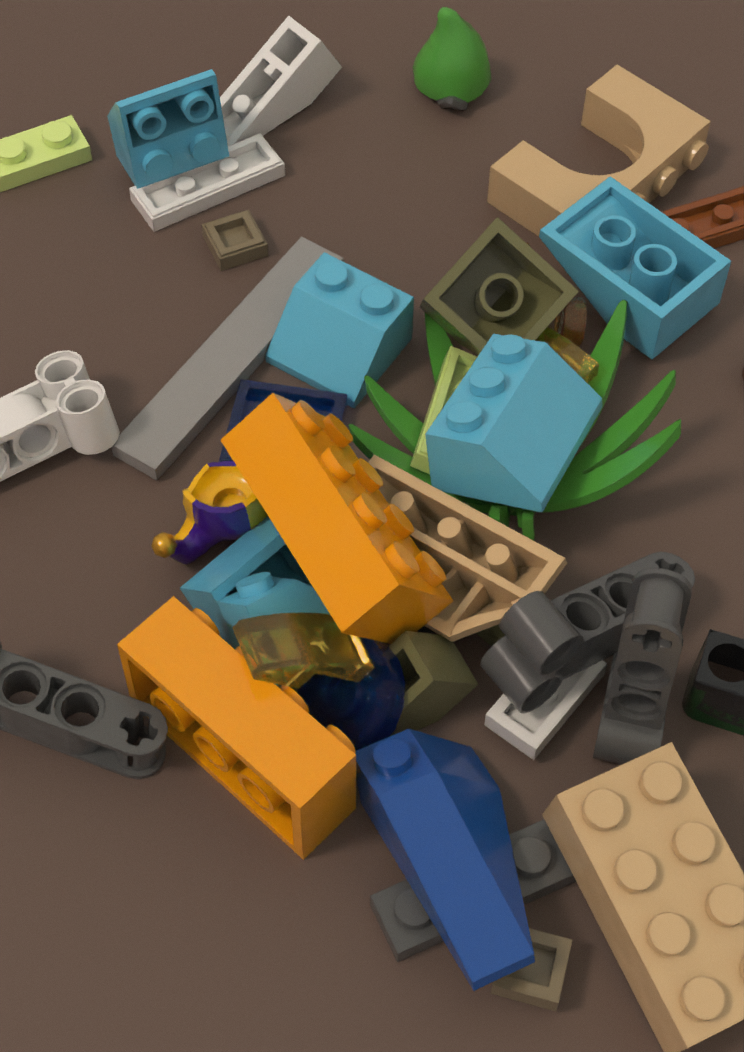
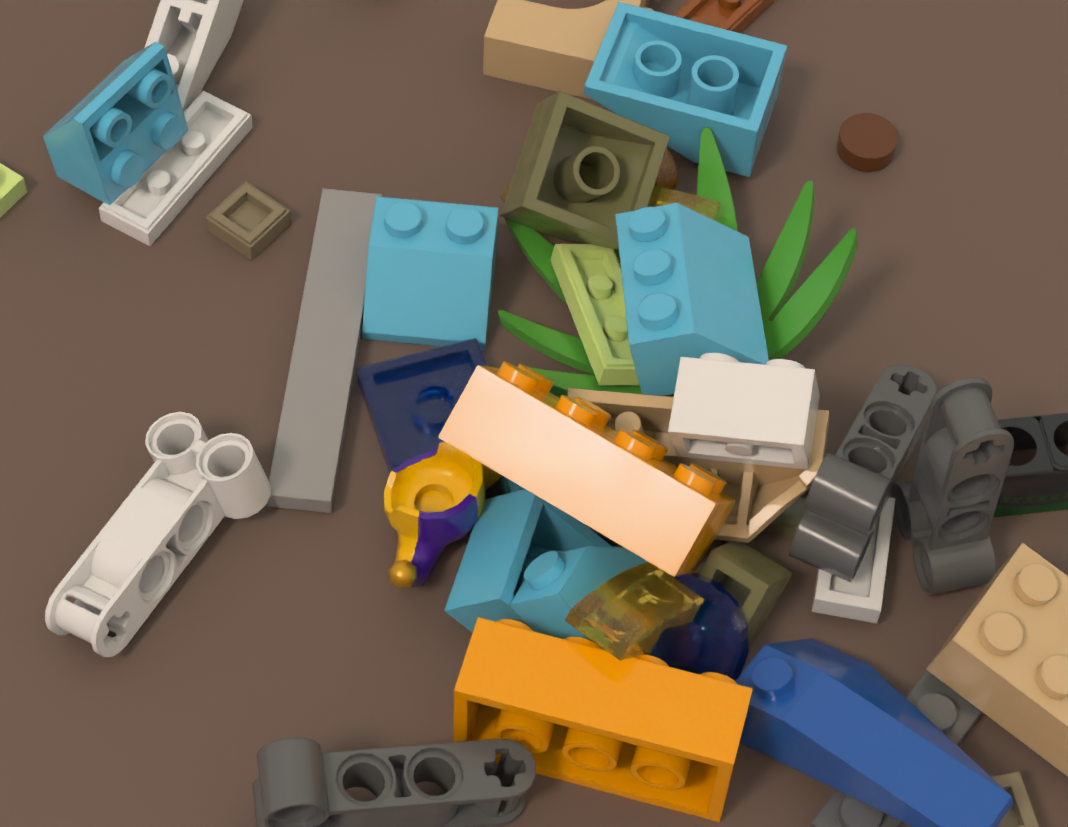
camera: 30 degrees left, 0 degrees up
(489, 526) = (744, 411): none -> white brick

